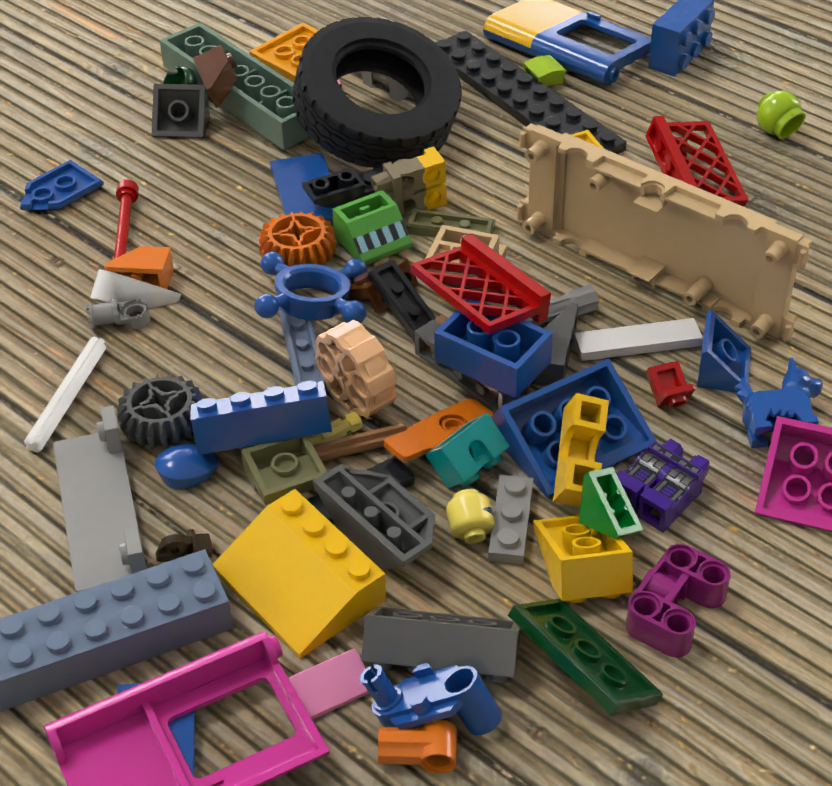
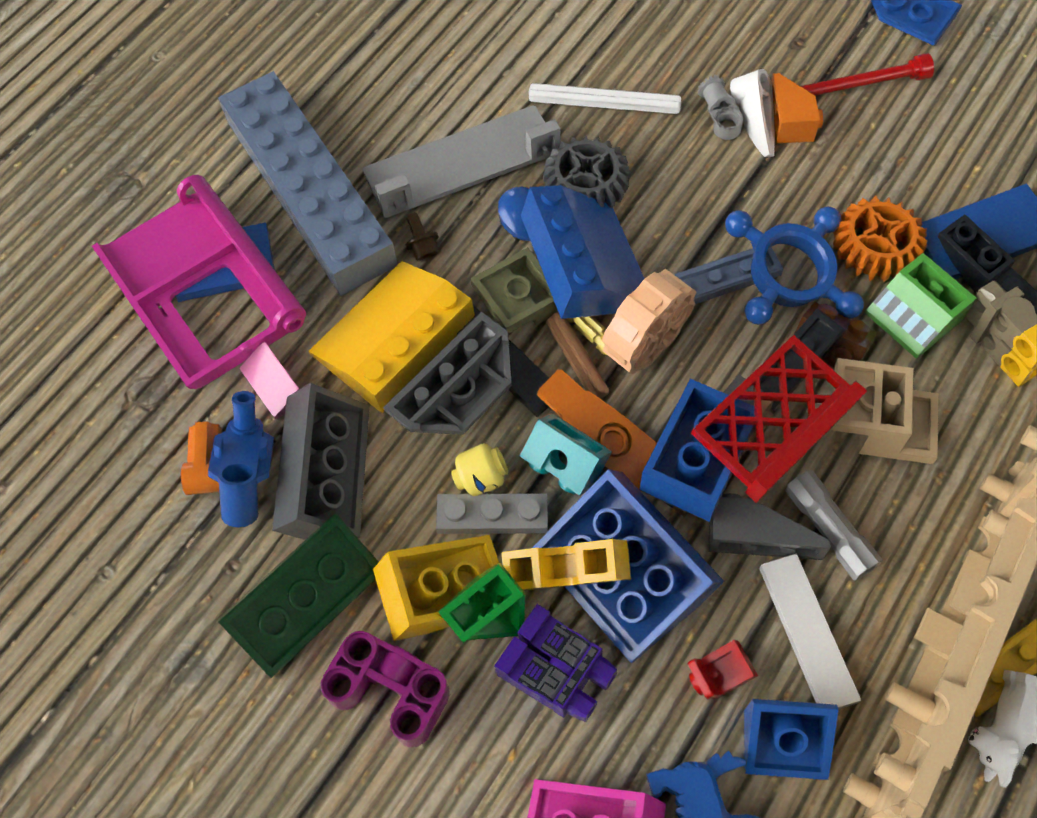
camera: 85 degrees right, 20 degrees up
(429, 222) = (970, 396): olive tile -> none

